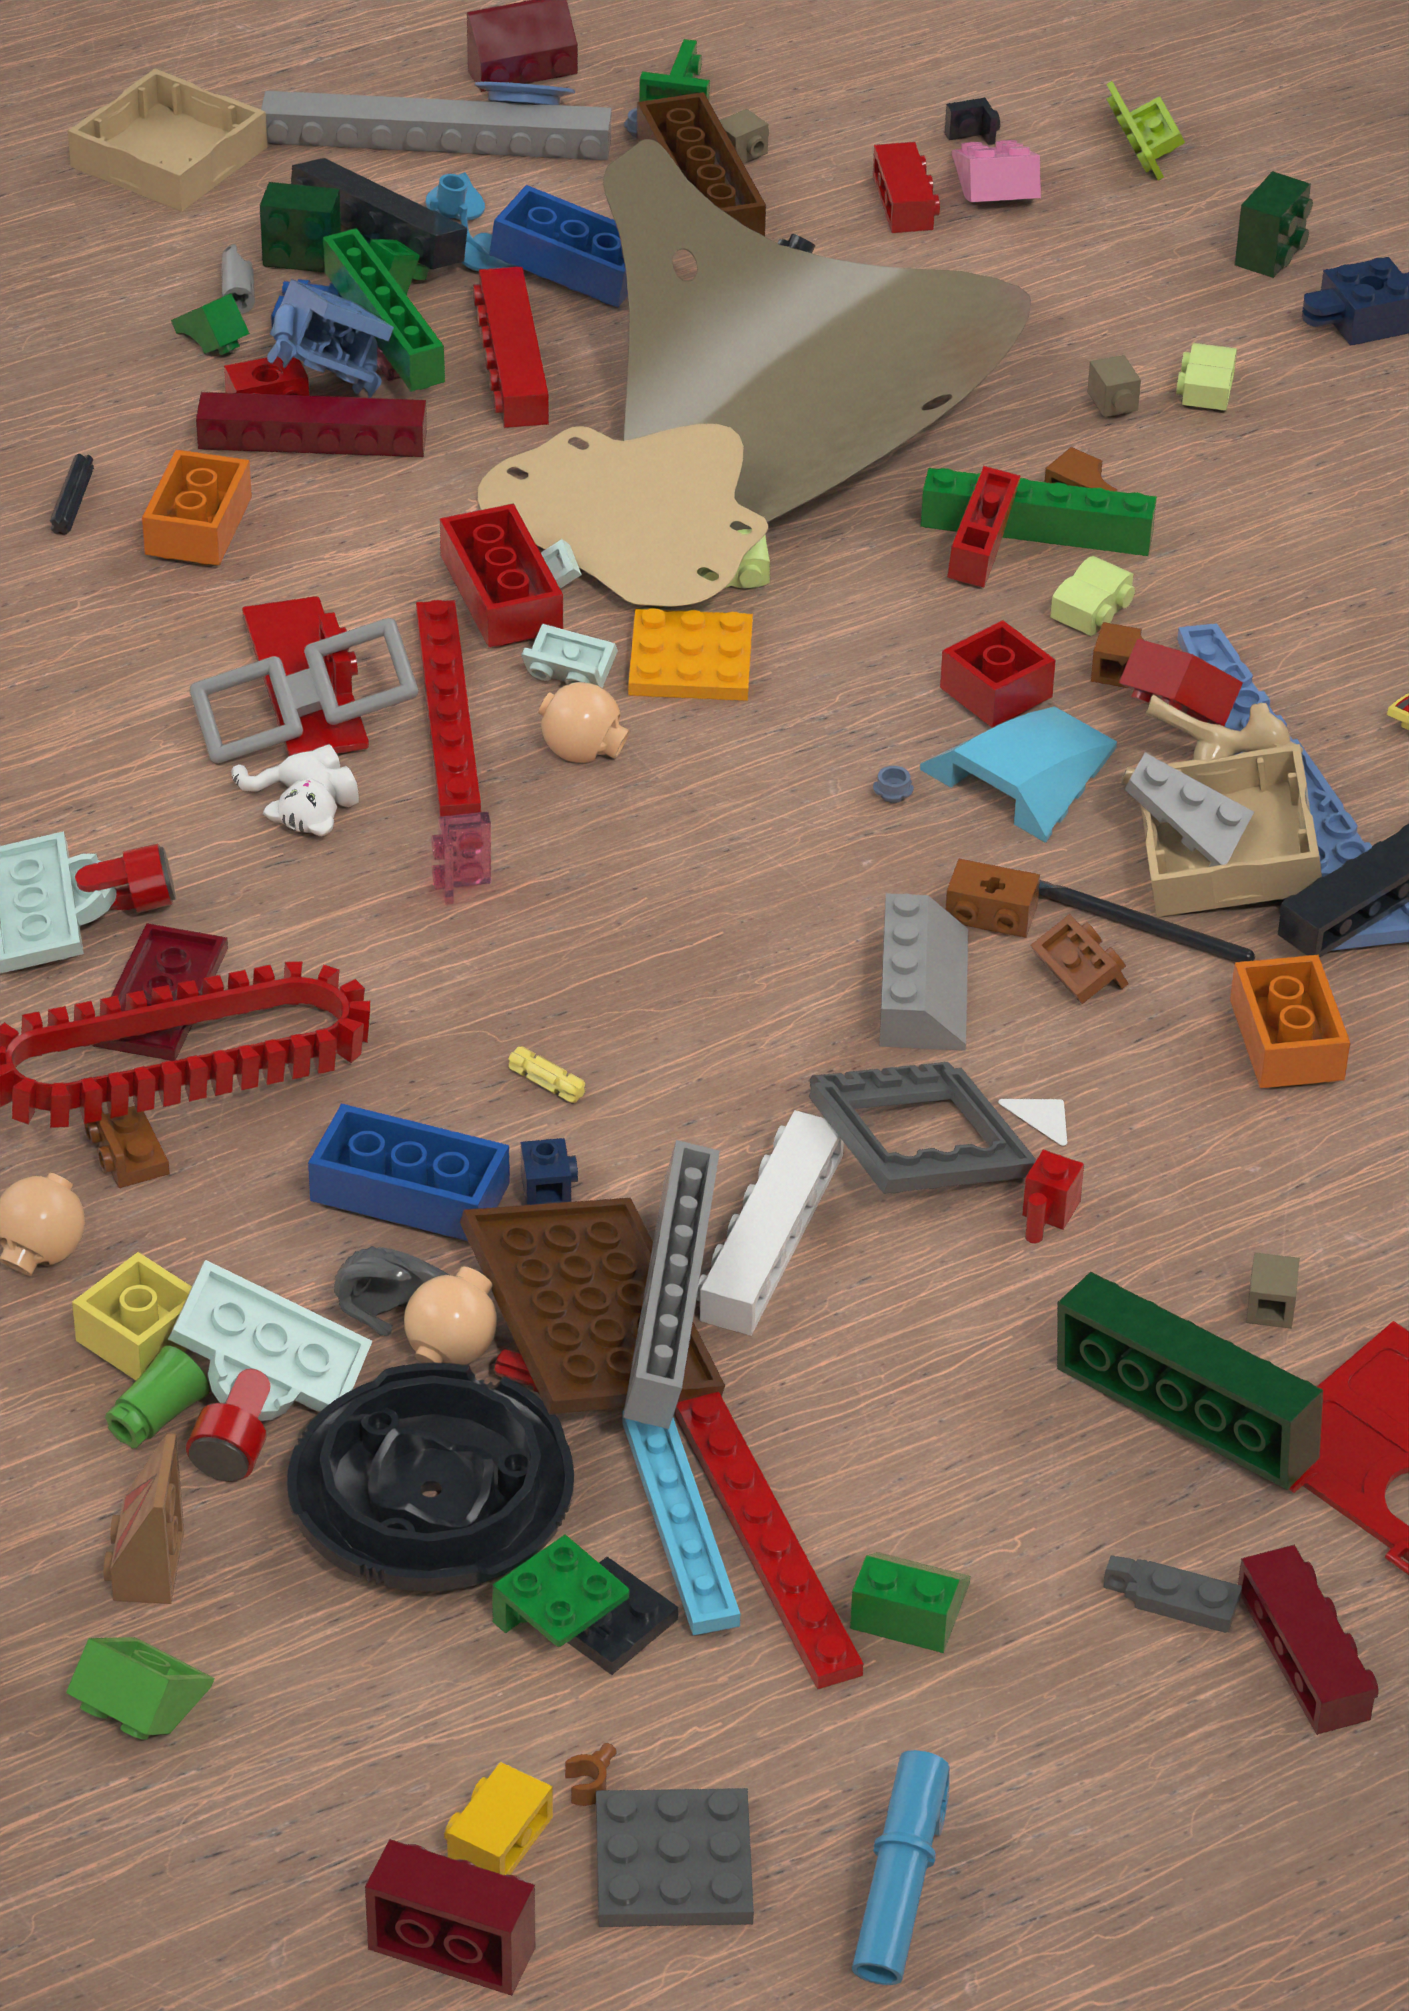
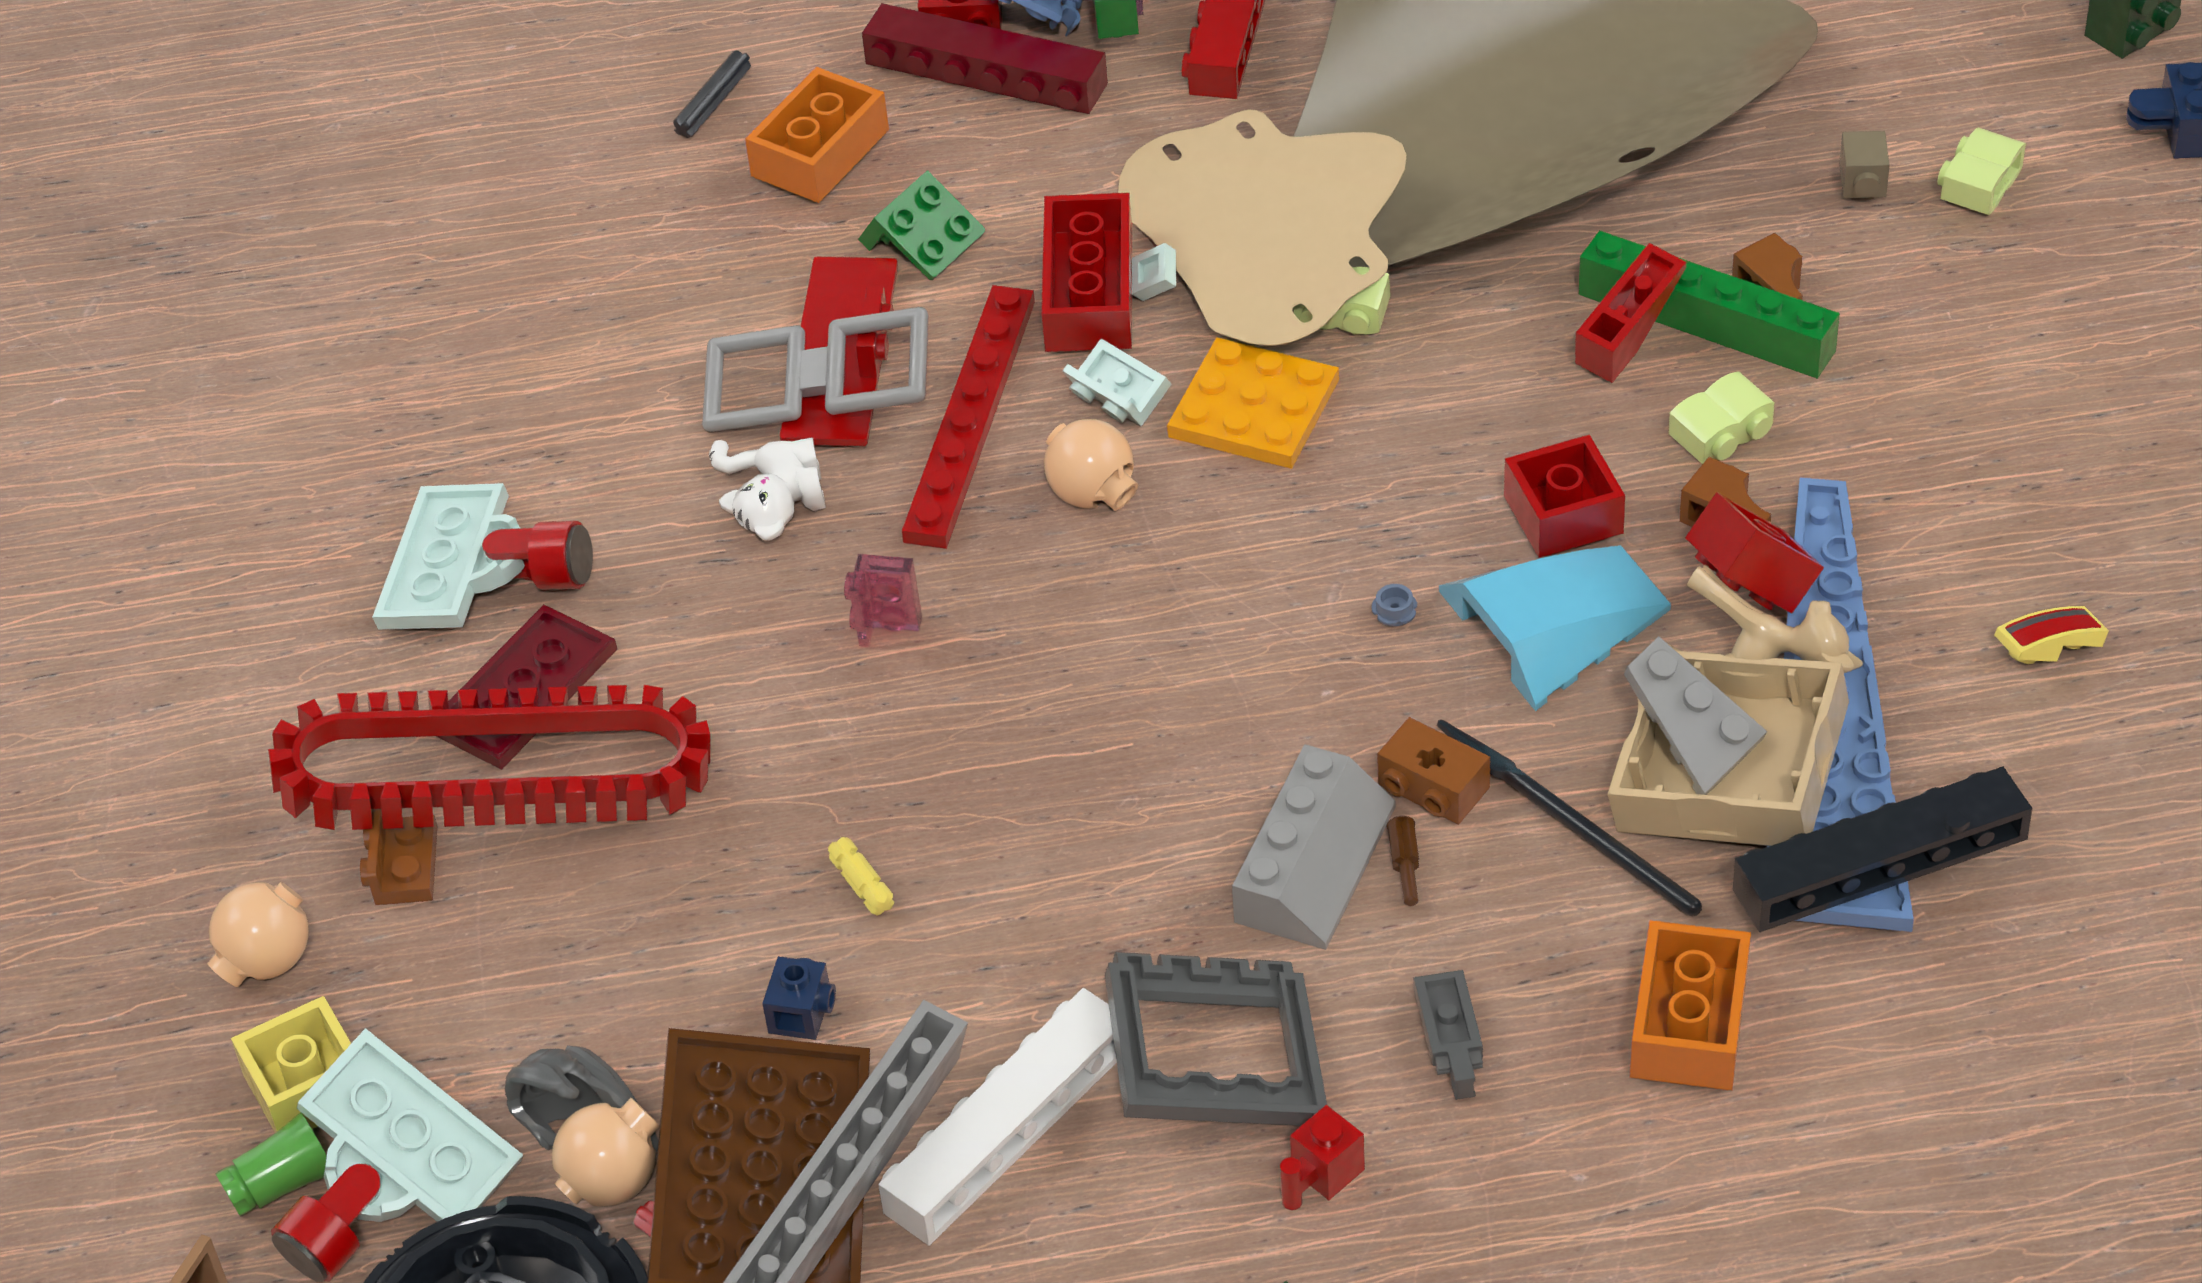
camera: 25 degrees right, 5 degrees up
(331, 563) = (925, 226): none -> bracket
(406, 1170) = (650, 961): blue brick -> none
(997, 965) = (1404, 855): none -> reddish brown axle
(1042, 1114) = (1371, 1051): white sticker -> none
(1078, 959) = (1496, 868): dark orange bracket -> none
(1103, 1082) = (1450, 1028): none -> dark grey hinge

